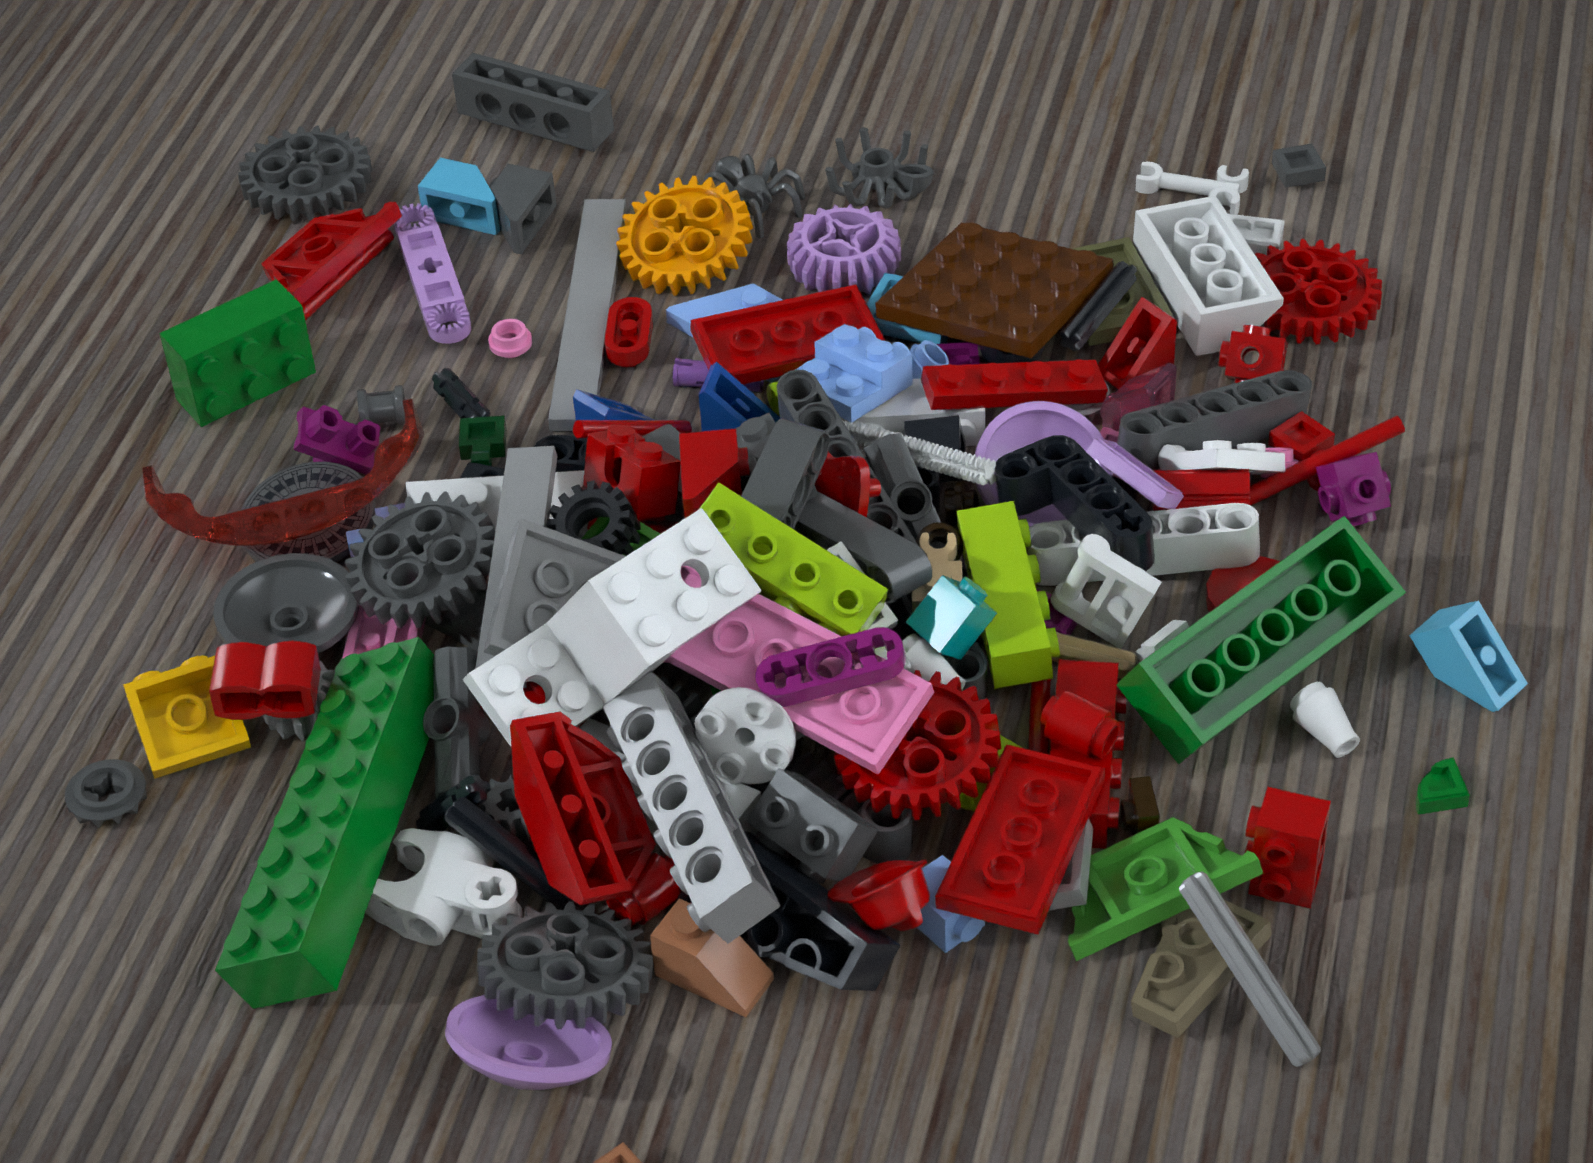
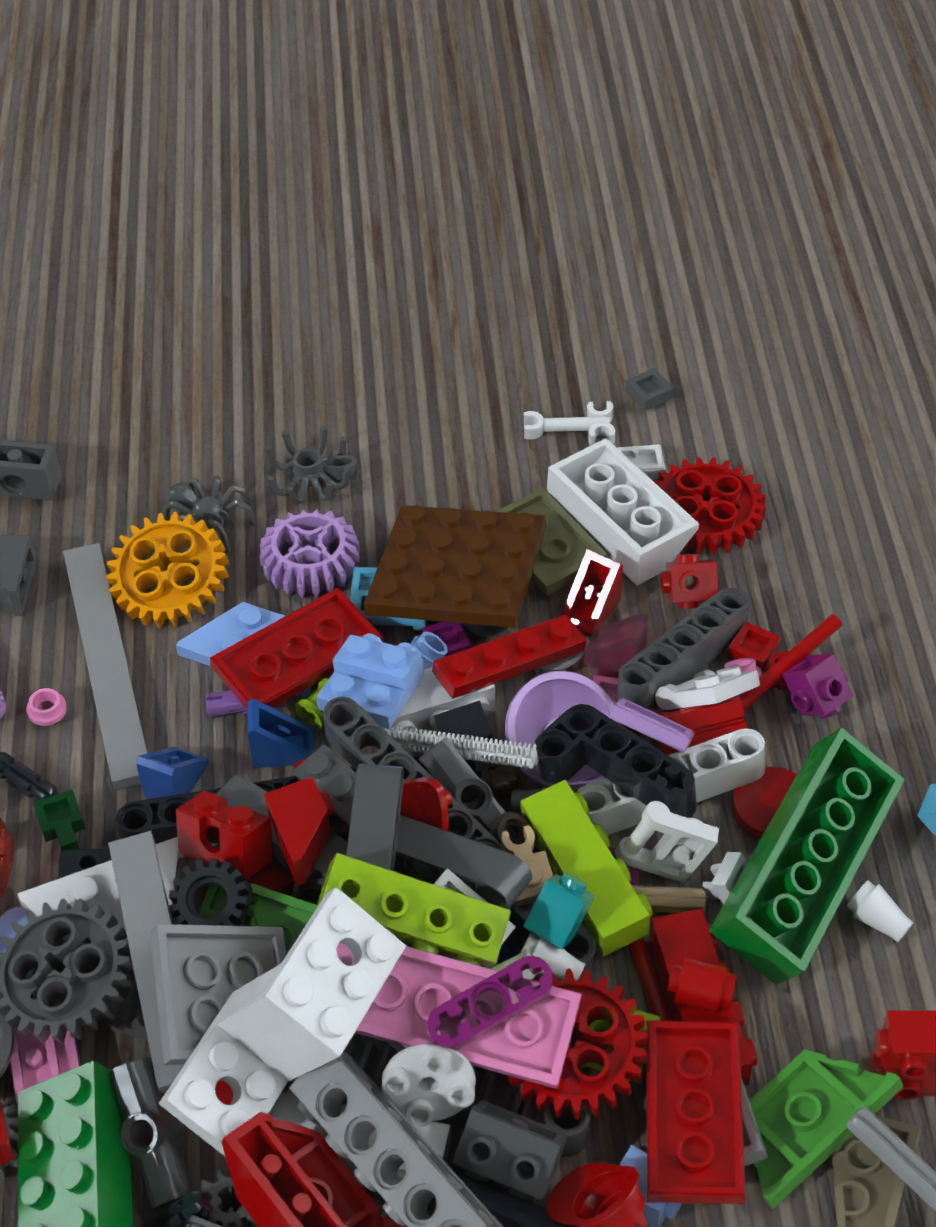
camera: 20 degrees left, 5 degrees up
(628, 331) = (151, 675): red plate -> none
(642, 427) = (195, 778): red bar -> none
(1098, 306) = (547, 561): black axle -> none
(1141, 807) = (771, 1045): dark brown plate -> none

